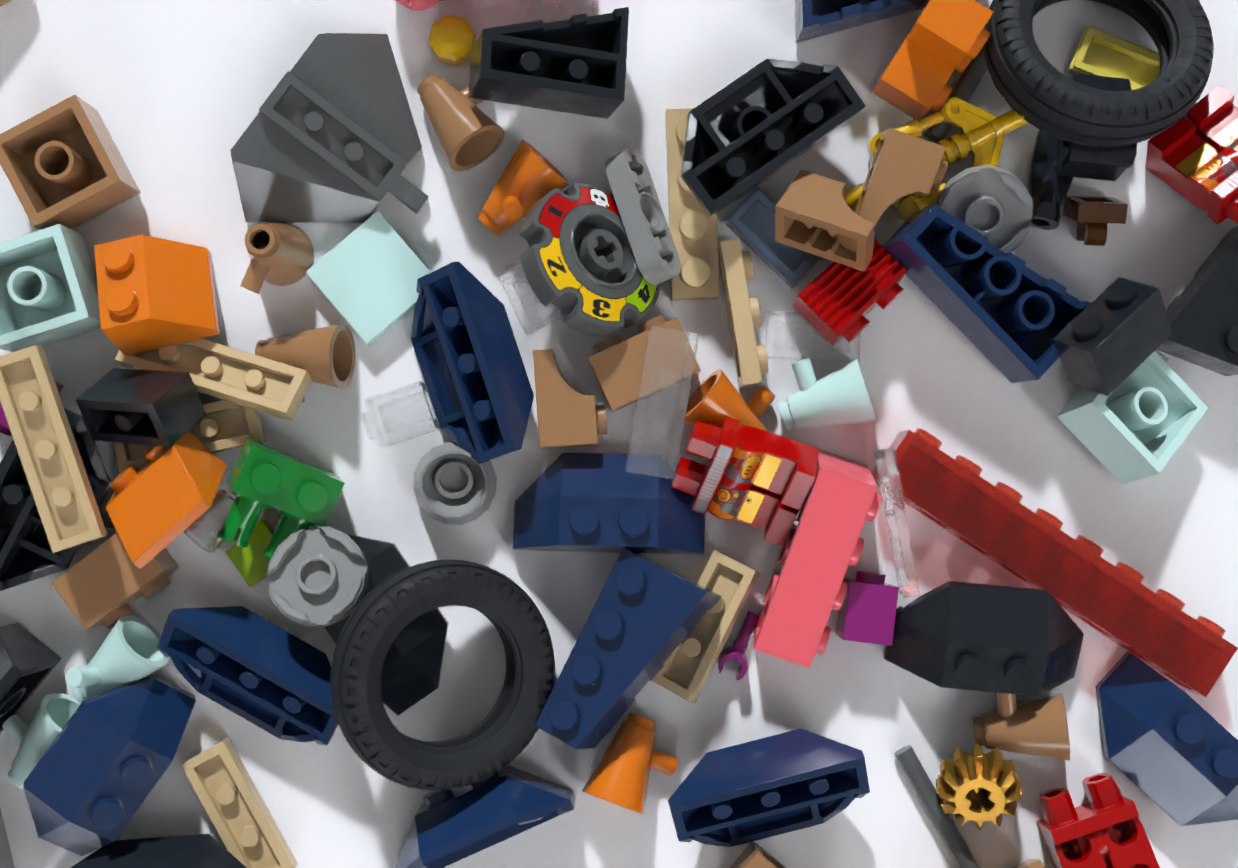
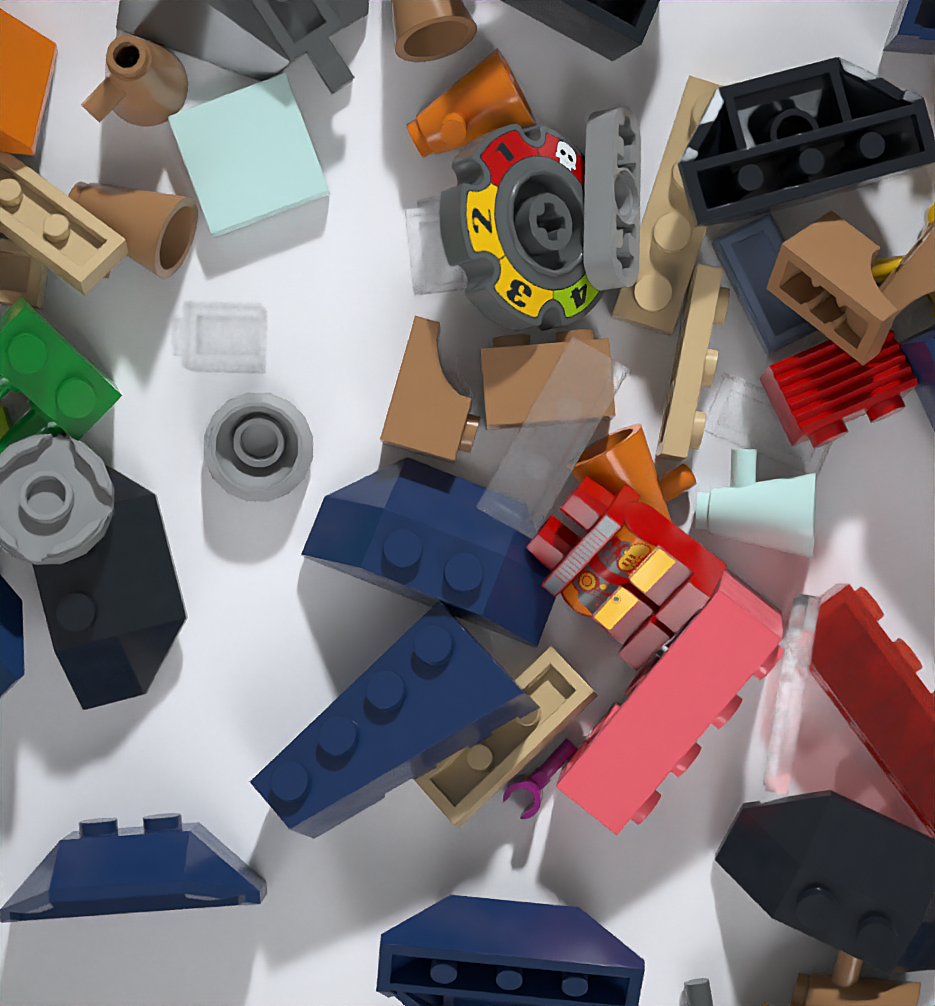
camera: 20 degrees right, 0 degrees up
(365, 643) = (72, 608): black tyre -> none
(471, 363) = (332, 304): dark blue wedge -> none
(626, 765) = (345, 872): orange piece -> none
(868, 609) = (716, 789): magenta brick -> none

